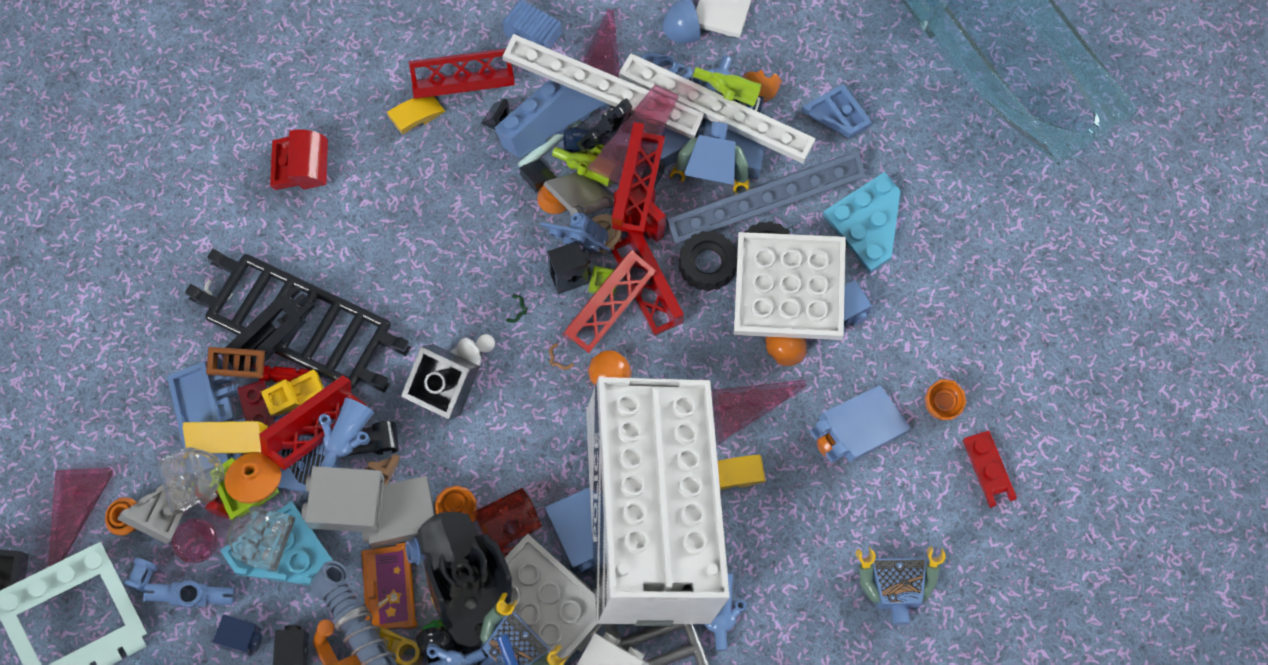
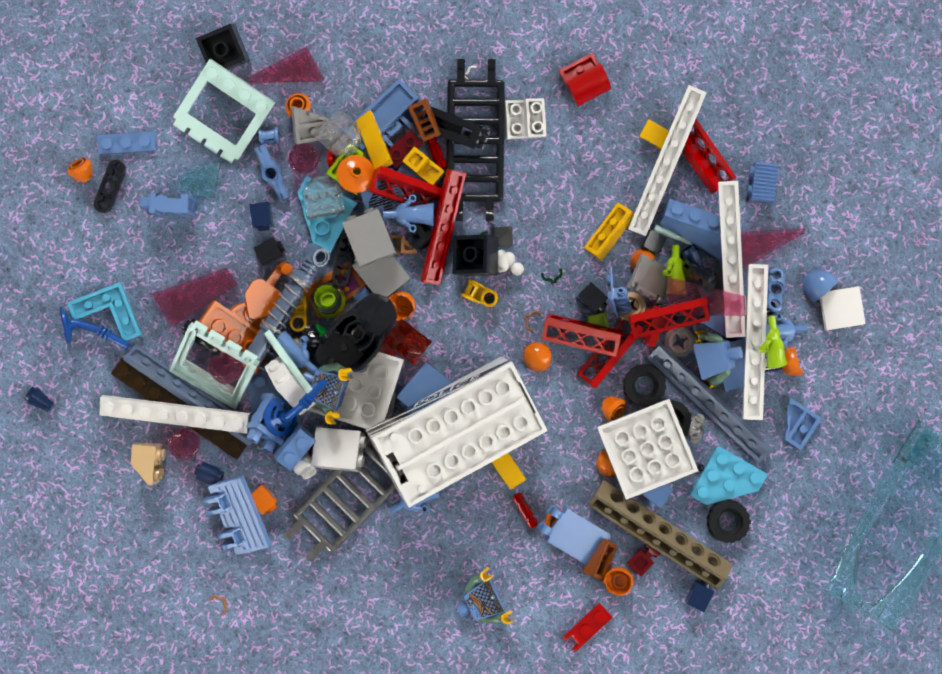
camera: 70 degrees right, 20 degrees up
(306, 251) = (524, 119): none -> white slope
(361, 566) = (346, 275): none -> black beam
(383, 404) = (443, 227): none -> red tile
(398, 600) = (328, 300): none -> lime piece
(437, 337) = (504, 235): none -> dark grey slope
(448, 111) = (667, 160): none -> white plate
(492, 403) = (478, 293): none -> yellow piece
(496, 114) = (684, 191): black slope -> none
(499, 216) = (611, 233): none -> yellow slope
(682, 191) = (687, 346): none -> light grey gear
(718, 308) = (613, 408): none -> orange cone
(742, 405) = (555, 453): clear pink wing -> none
(790, 222) = (696, 428): none -> light grey gear
(801, 476) = (525, 510): none -> red axle
(904, 323) = (660, 535): none -> dark tan brick
(910, 413) = (600, 560): none -> dark orange slope
(928, 221) = (732, 535): none -> black tyre
(929, 362) = (641, 561): none -> dark red plate
(1004, 312) = (699, 595): none -> dark blue brick

